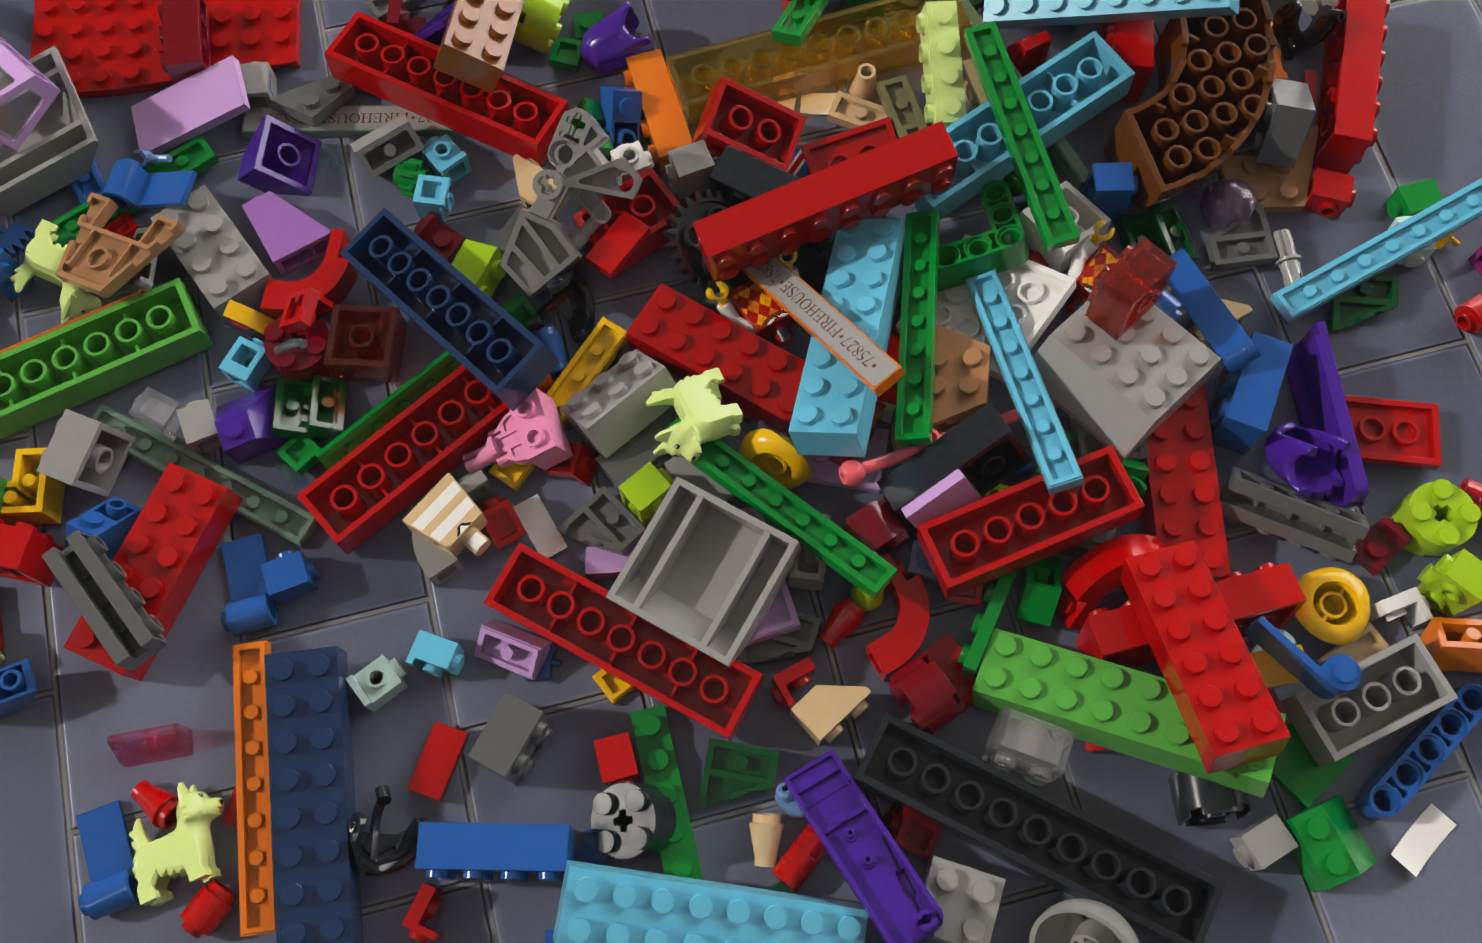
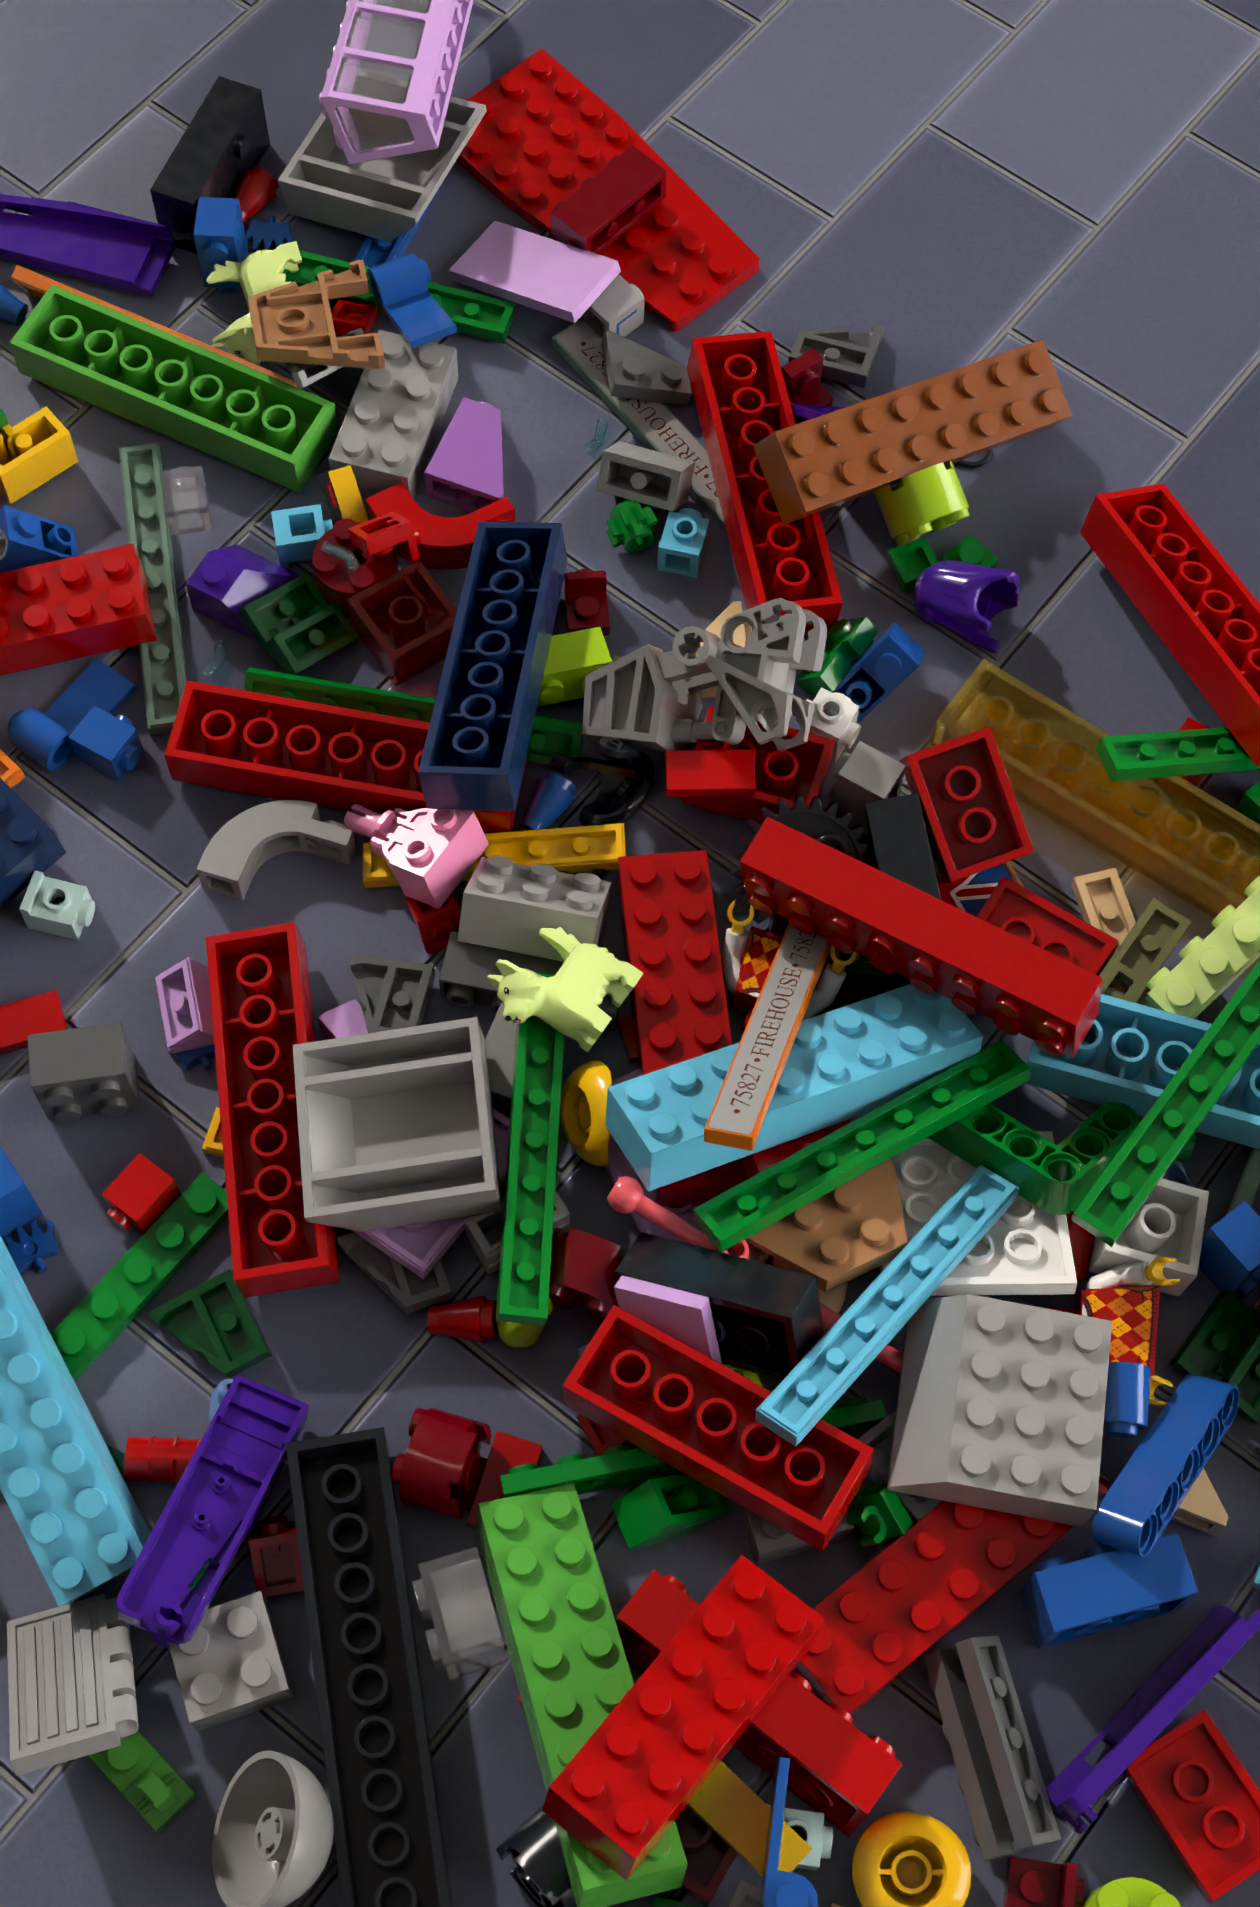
camera: 50 degrees right, 5 degrees down
(85, 453) = (89, 468): light grey brick -> none
(150, 158) = (450, 279): medium blue hand -> none
(199, 426) = (198, 538): light grey brick -> none
(280, 159) = (550, 394): dark purple slope -> none
(299, 454) = (241, 653): green plate -> none
(433, 195) = (626, 570): medium azure brick -> none
(436, 655) = (125, 938): medium azure brick -> none
(449, 519) = (270, 838): tan torso -> none
(502, 520) = (316, 894): red bracket -> none
(540, 526) = (343, 938): white sticker -> none
(632, 820) = (82, 1251): brick -> none
(645, 492) = (449, 999): lime brick -> none
(660, 107) = (911, 715): orange brick -> none
(766, 837) = (165, 1406): tan cone -> none
(795, 676) = (365, 1311): red bracket -> none
(812, 103) = (1081, 854): sticker -> none
(827, 707) = (351, 1371): tan slope -> none
(865, 83) = (1145, 887): tan cone -> none
(905, 638) = (517, 1395): red arch -> none
(1098, 574) = (714, 1544): red arch -> none
(1129, 287) = (1079, 1332): clear red brick -> none
(1305, 459) = (1071, 1716): dark purple hair -> none

